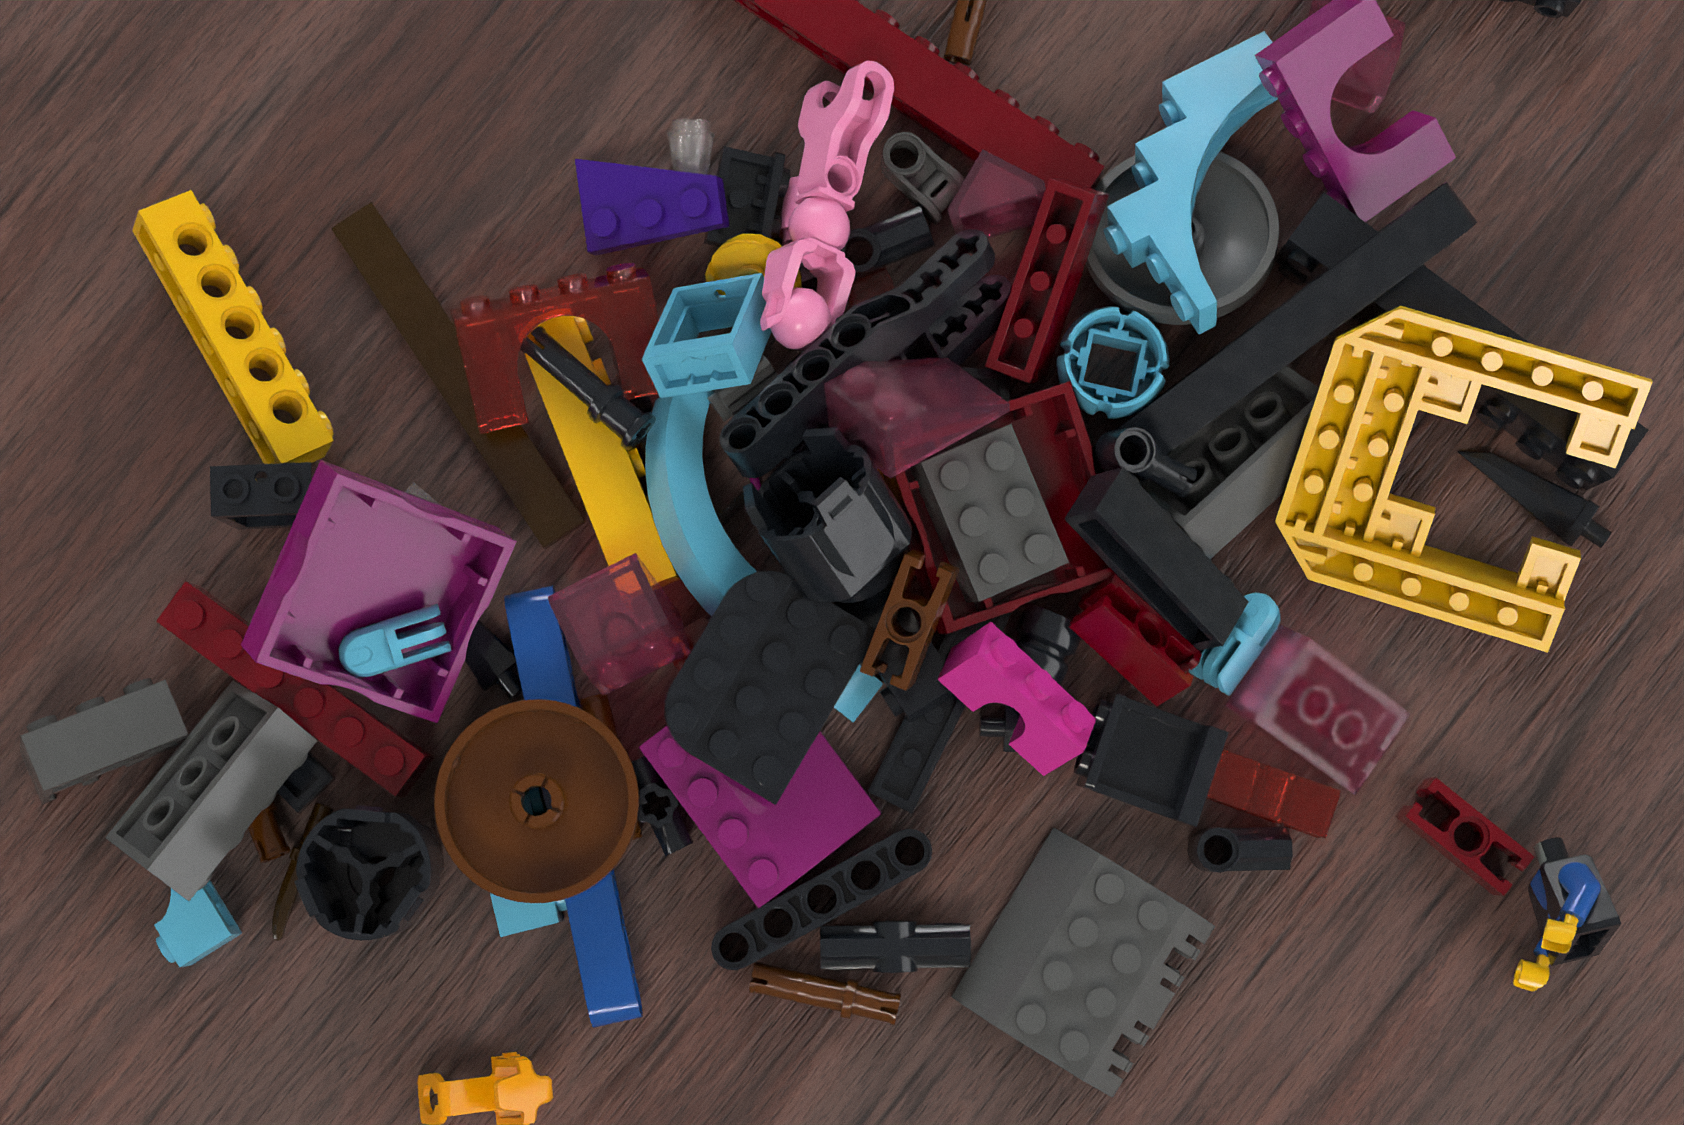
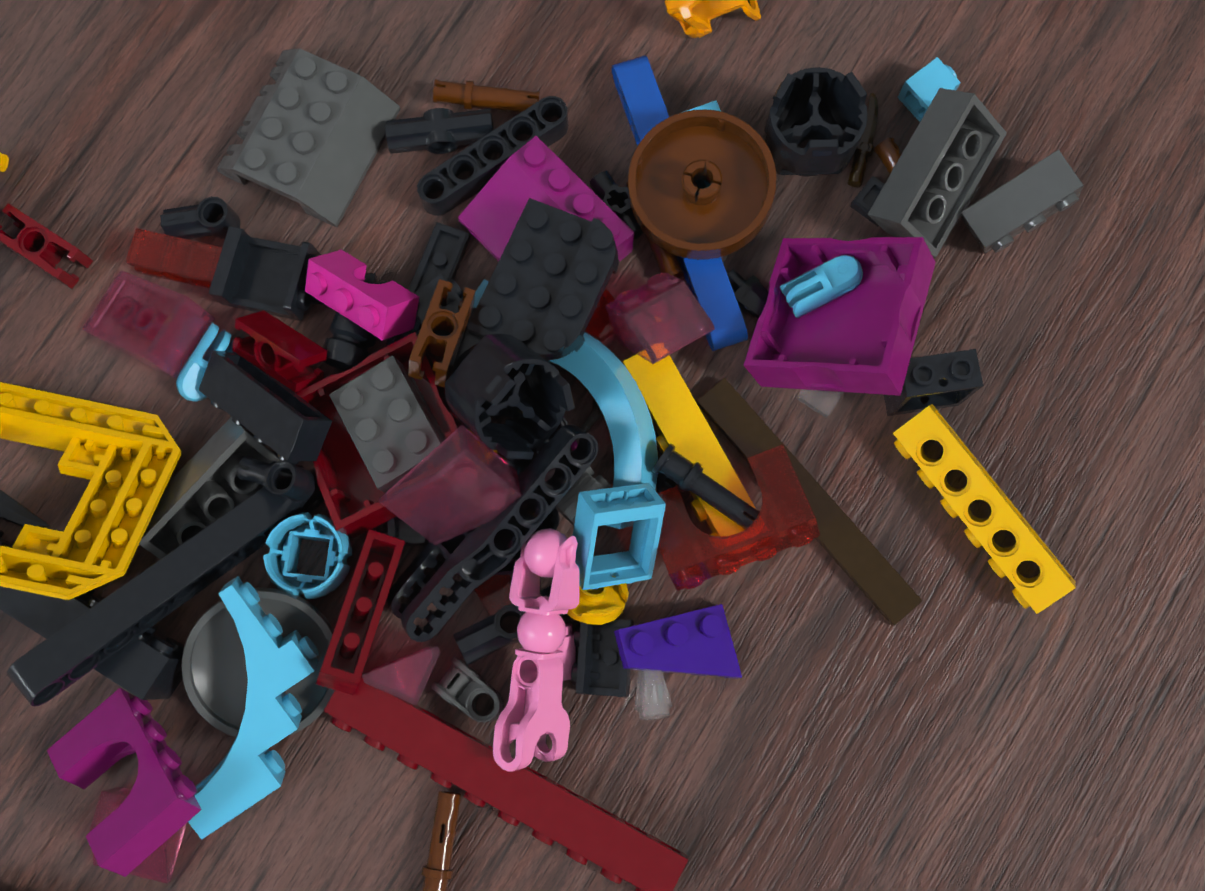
camera: 175 degrees right, 5 degrees down
(318, 708) = (953, 286): dark red arch -> none

